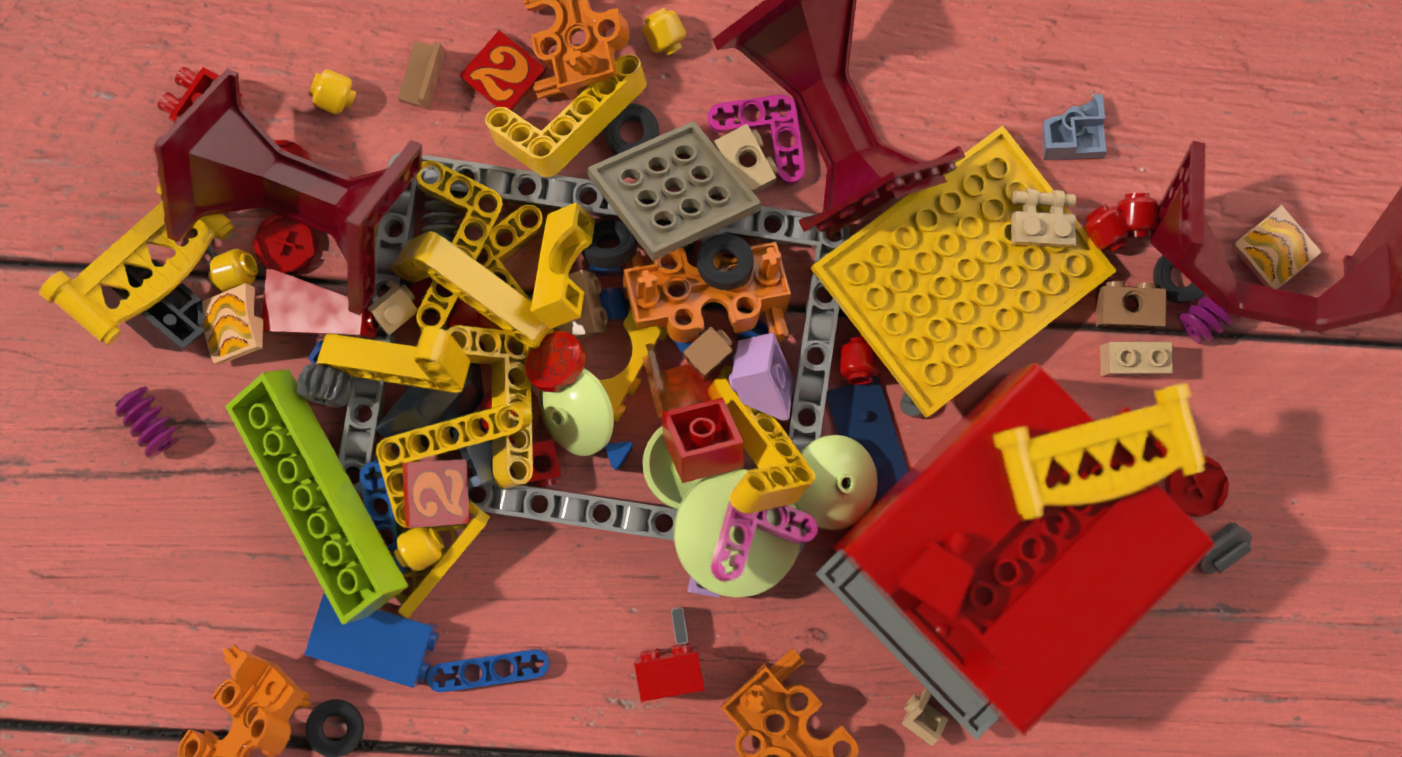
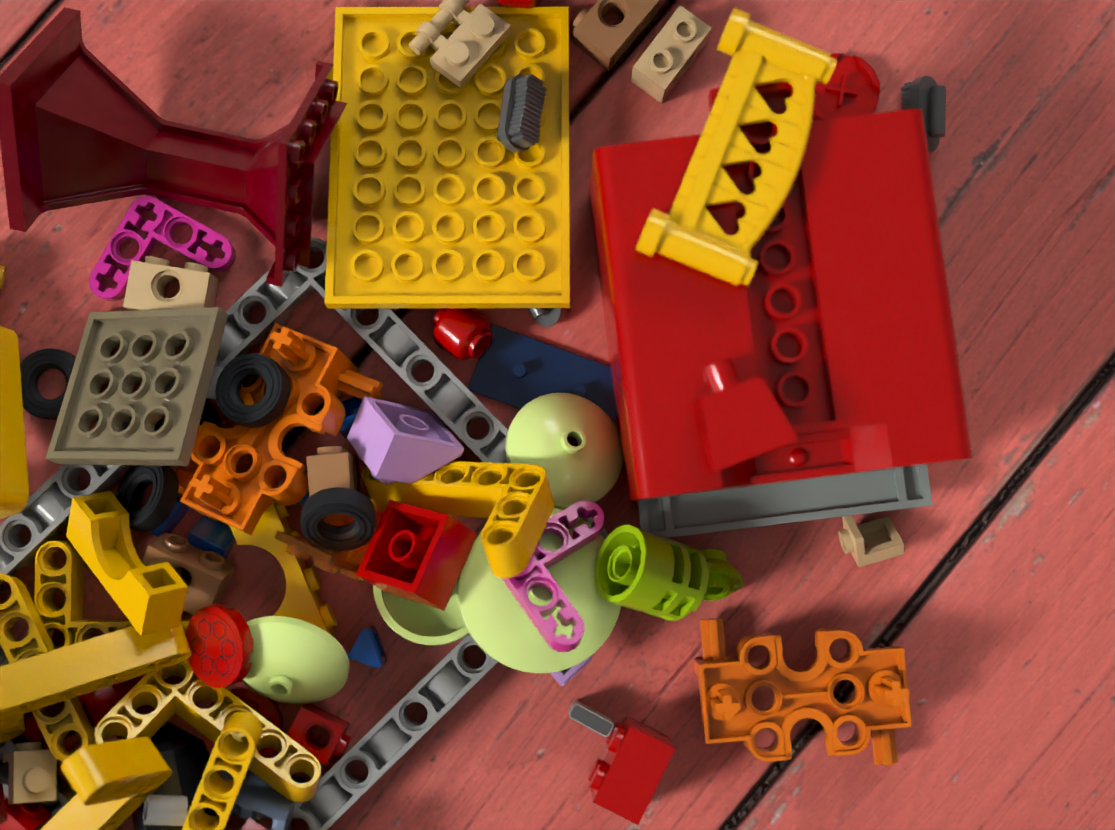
camera: 50 degrees left, 0 degrees up
(434, 405) = (165, 810): none -> light grey hinge
(697, 365) = (338, 502): none -> black tyre
(804, 601) = (661, 574): none -> lime cylinder
(1025, 294) = (521, 112): none -> dark grey piece

